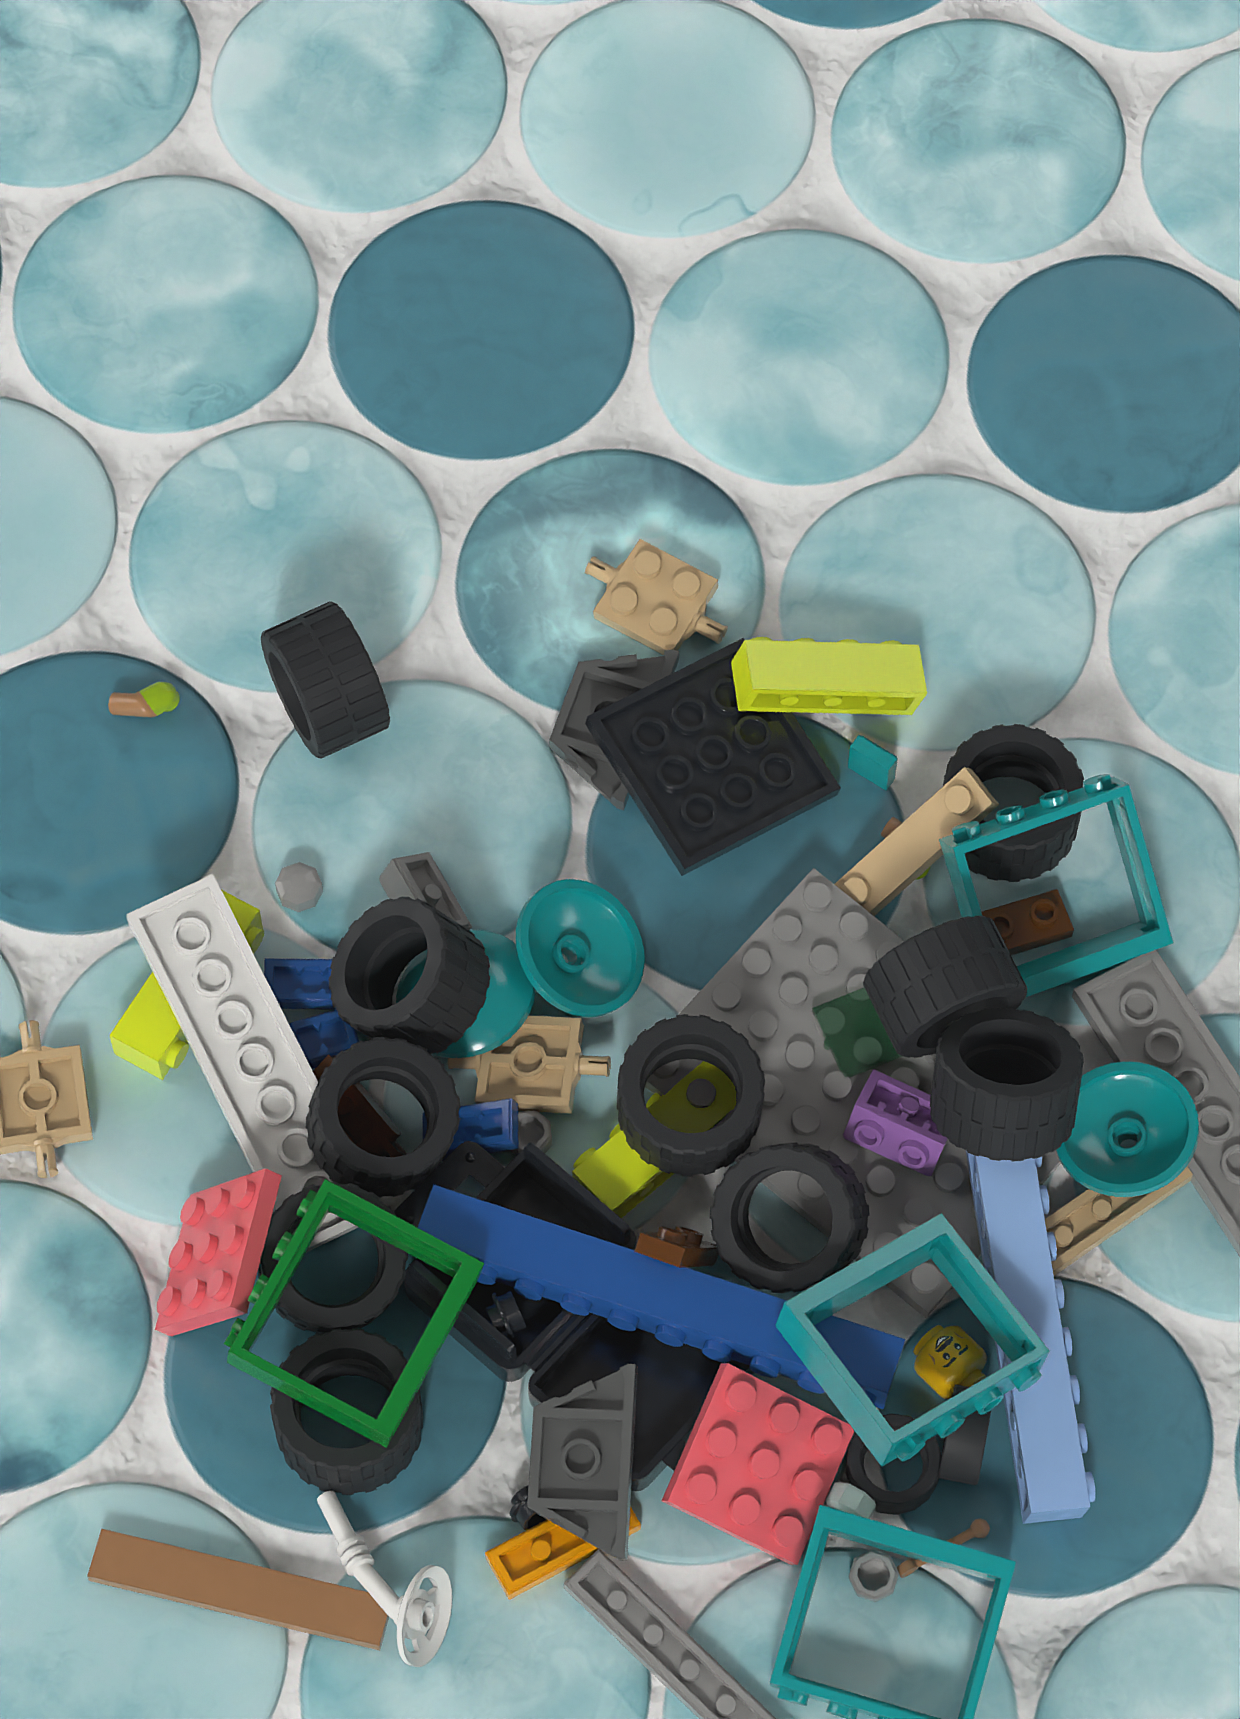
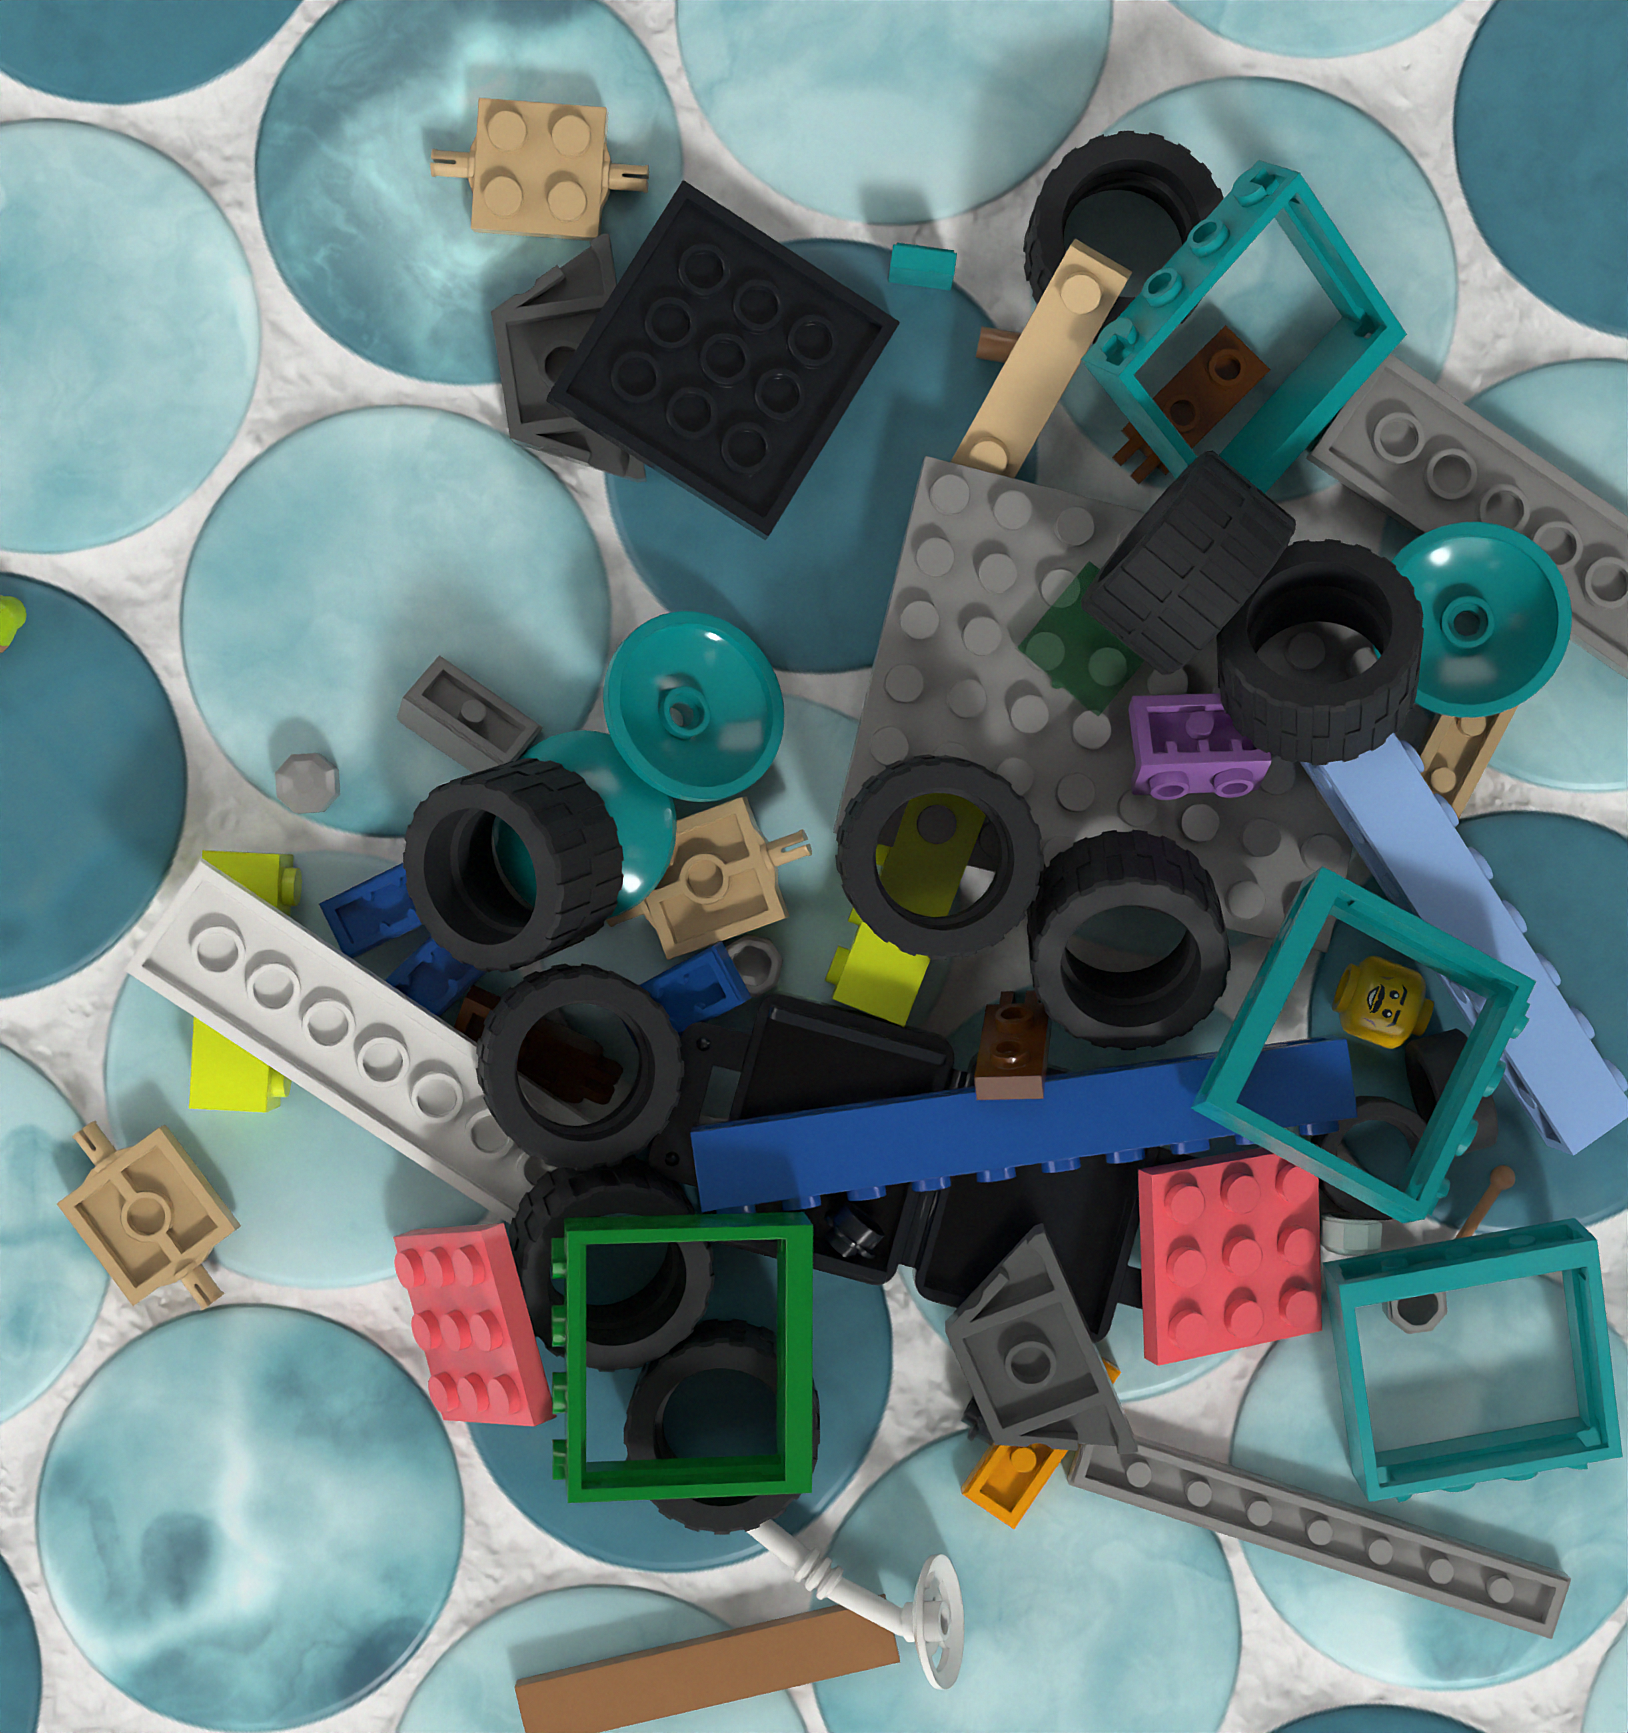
camera: 30 degrees left, 25 degrees up
(325, 679) = (190, 512): black tyre -> none
(828, 676) = (815, 181): neon yellow brick -> none

